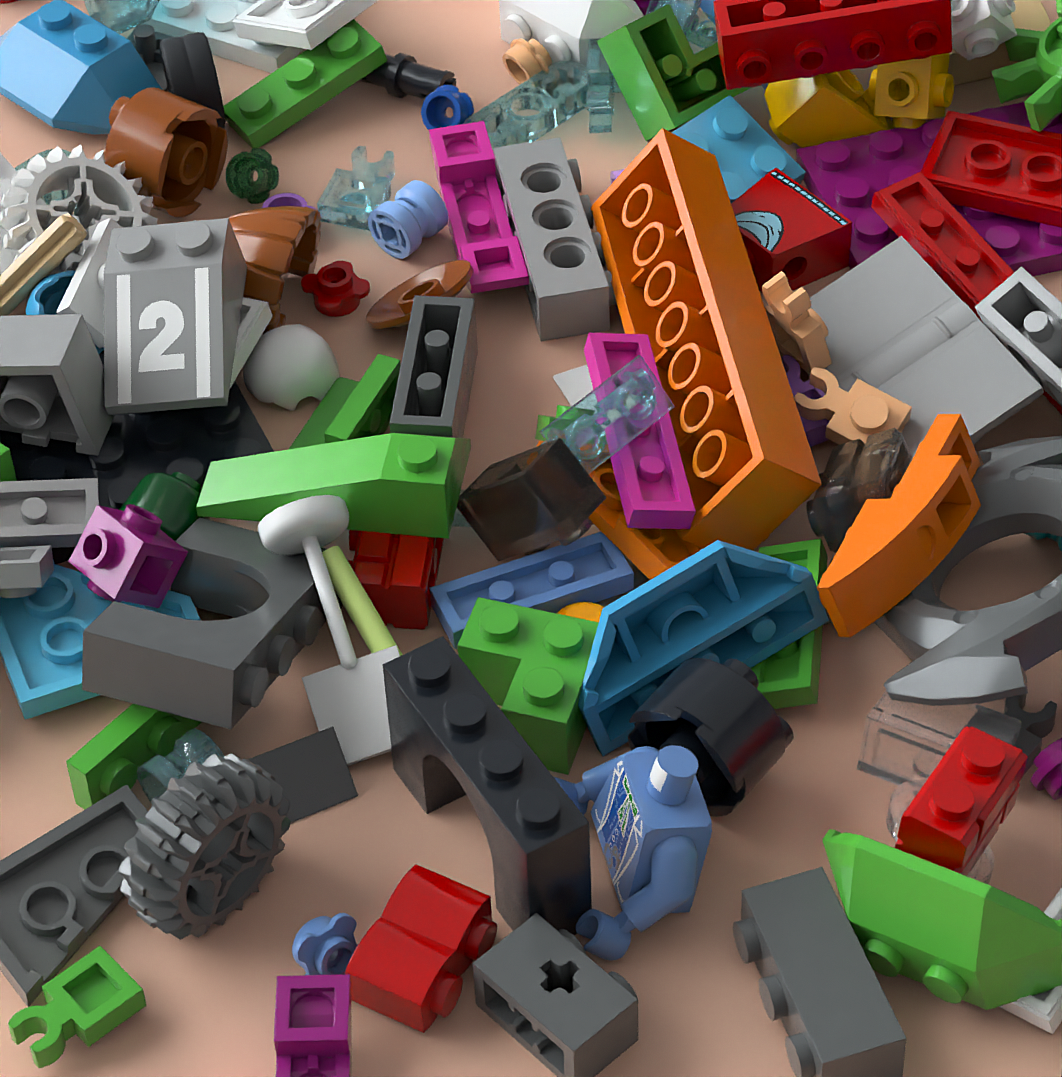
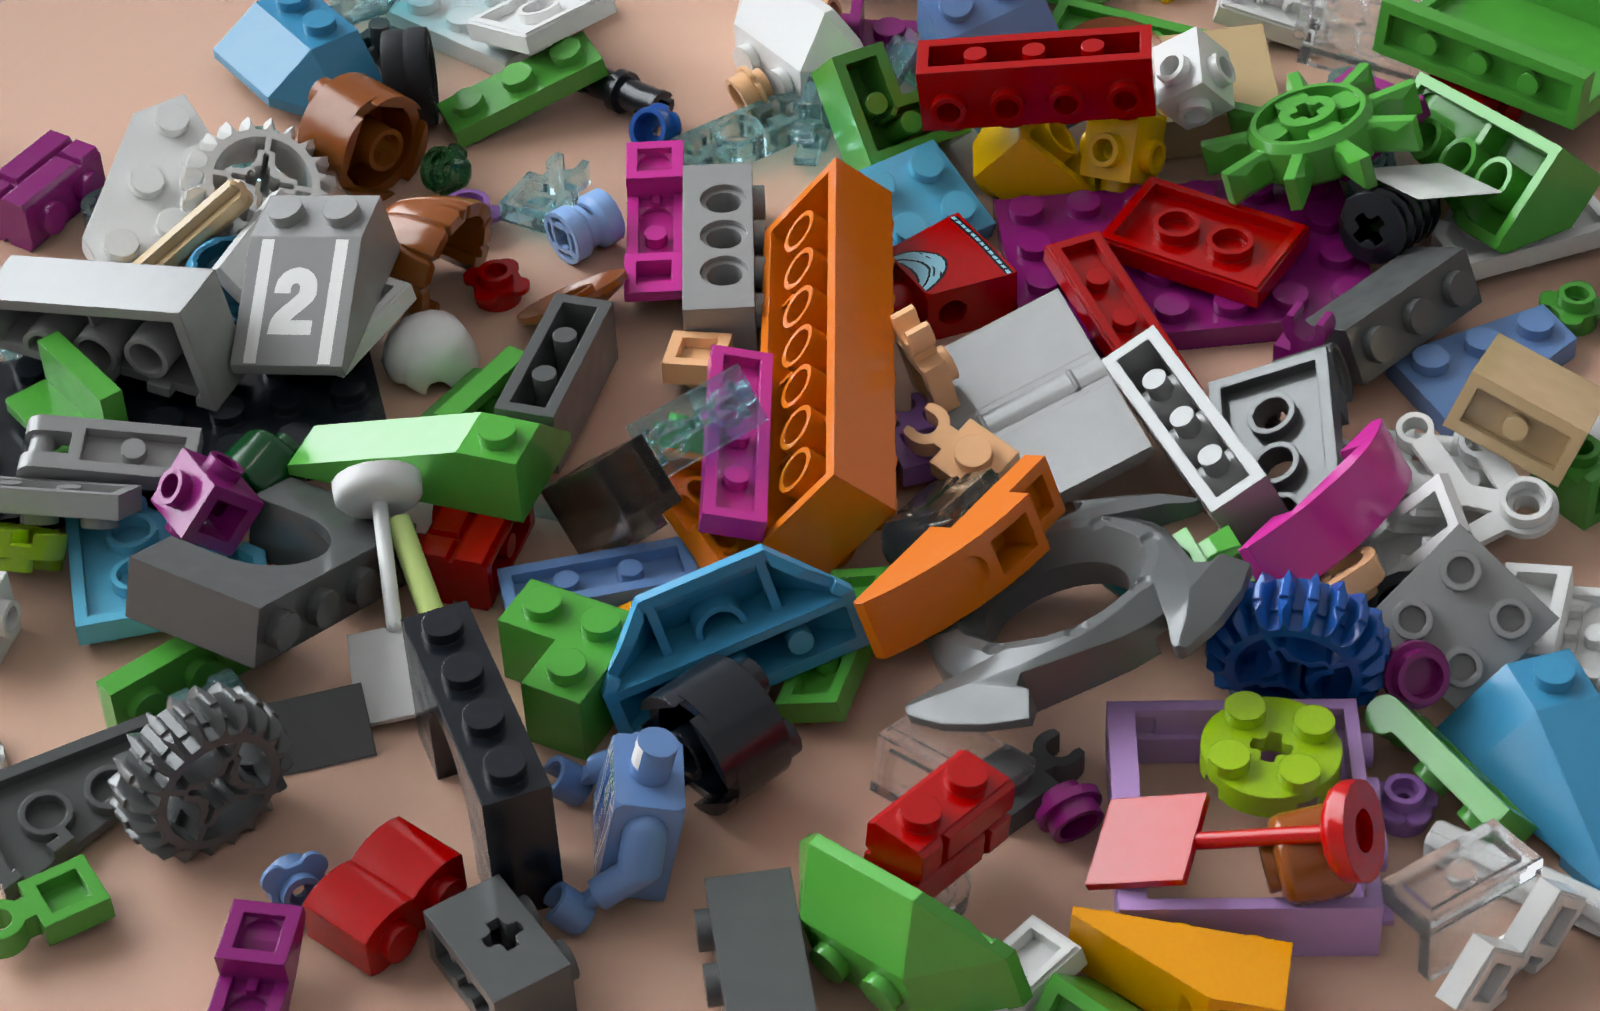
camera: 10 degrees right, 5 degrees down
(558, 343) = (688, 356): none -> light nougat plate

